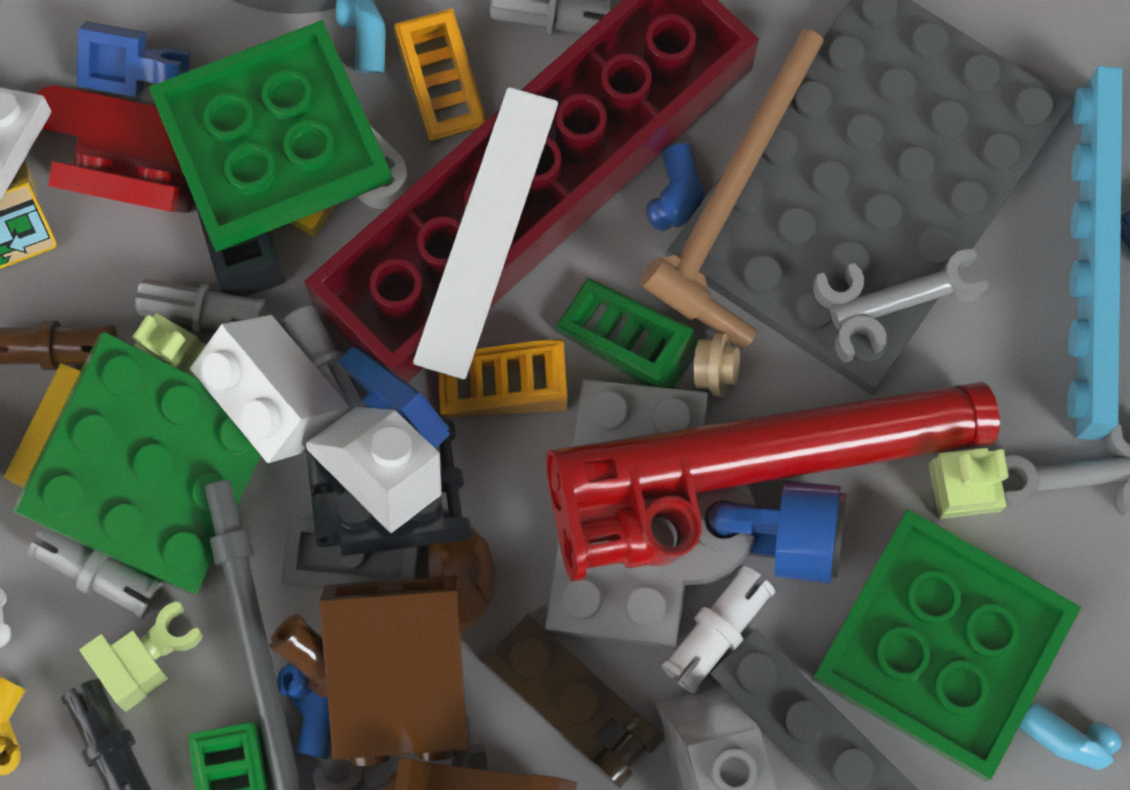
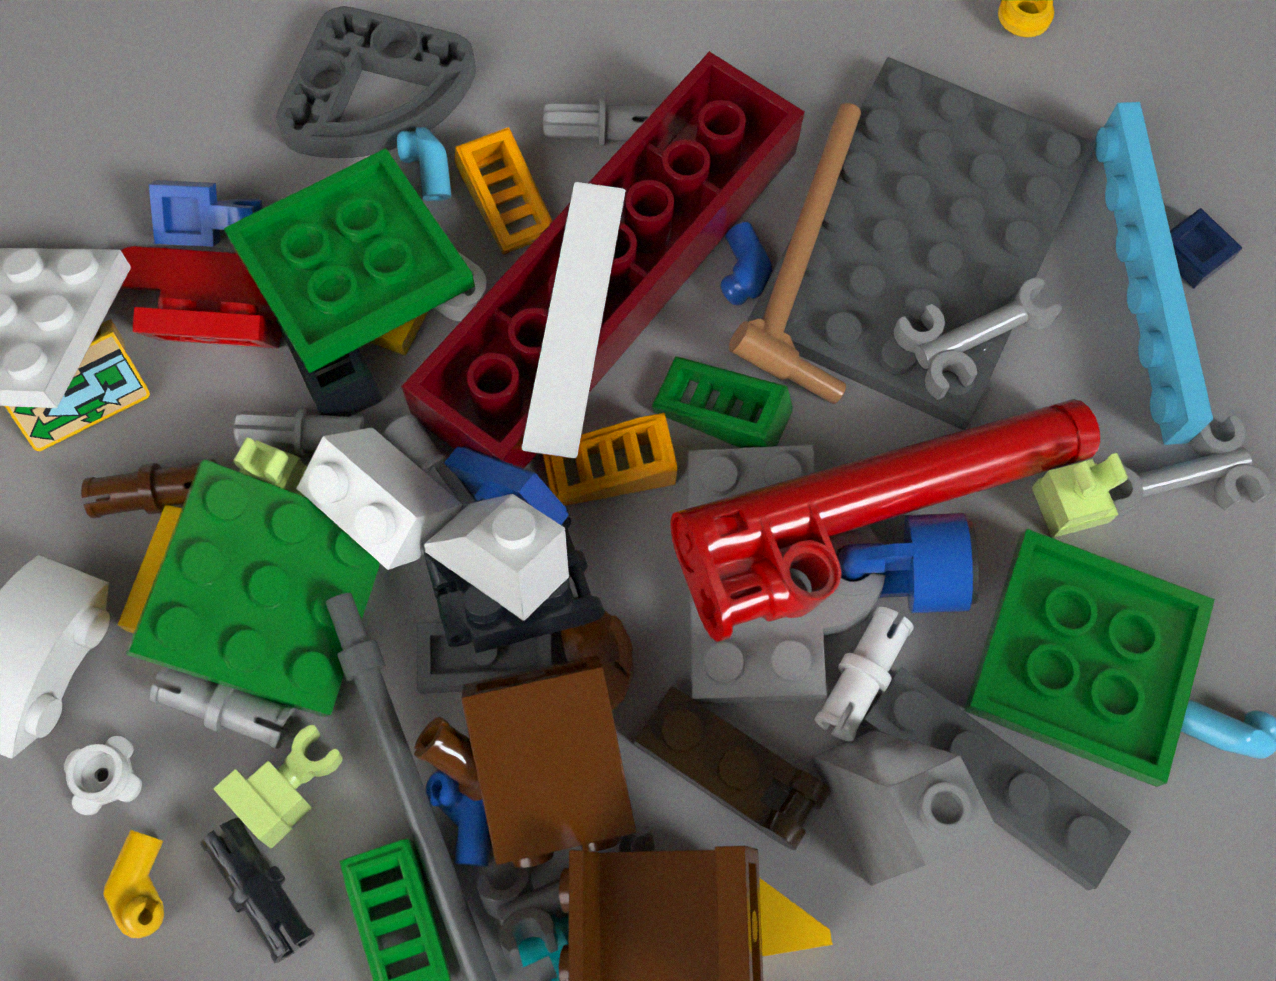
camera: 10 degrees left, 5 degrees down
(716, 365) = (814, 419): tan plate -> none

